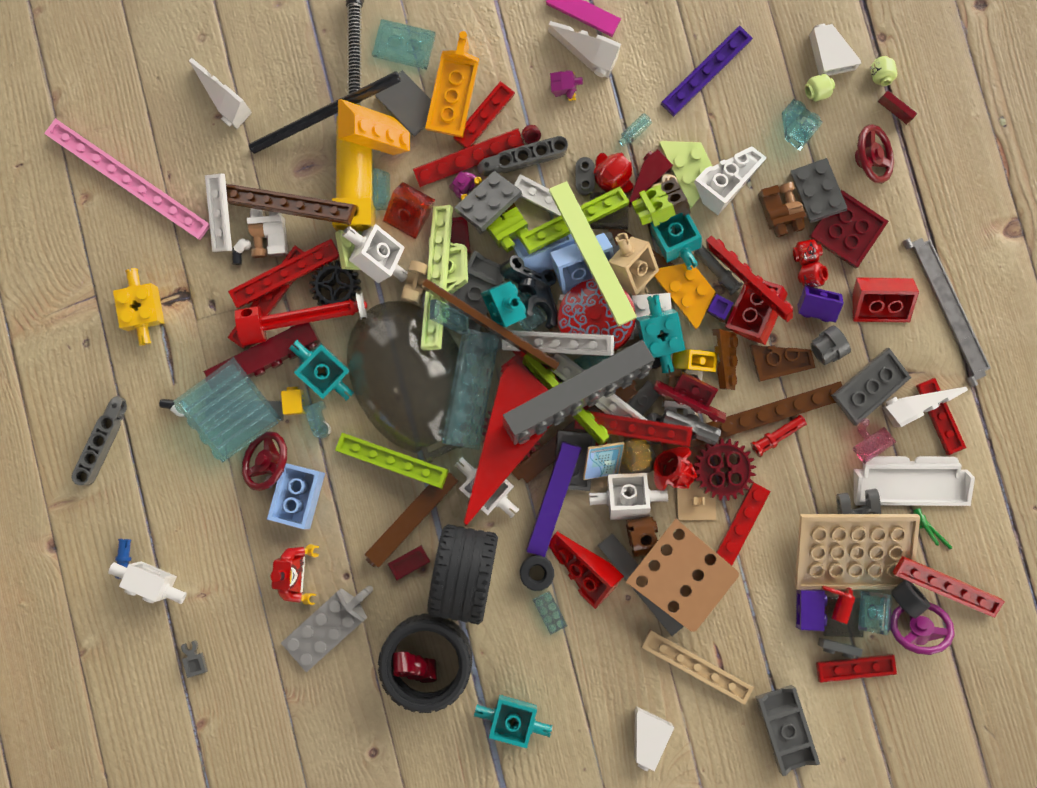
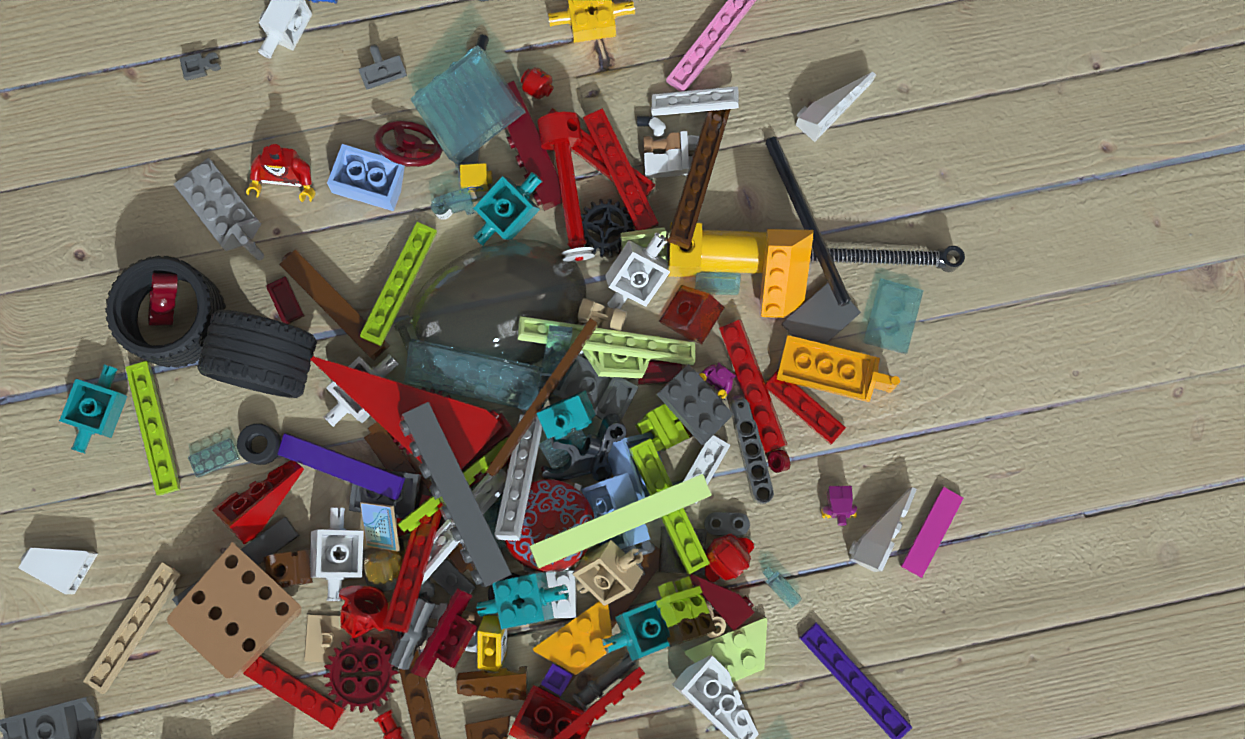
camera: 100 degrees right, 5 degrees down
(195, 491) = (382, 70): none -> dark grey plate
(204, 351) = (537, 83): none -> red head
(526, 668) = (153, 428): none -> lime plate

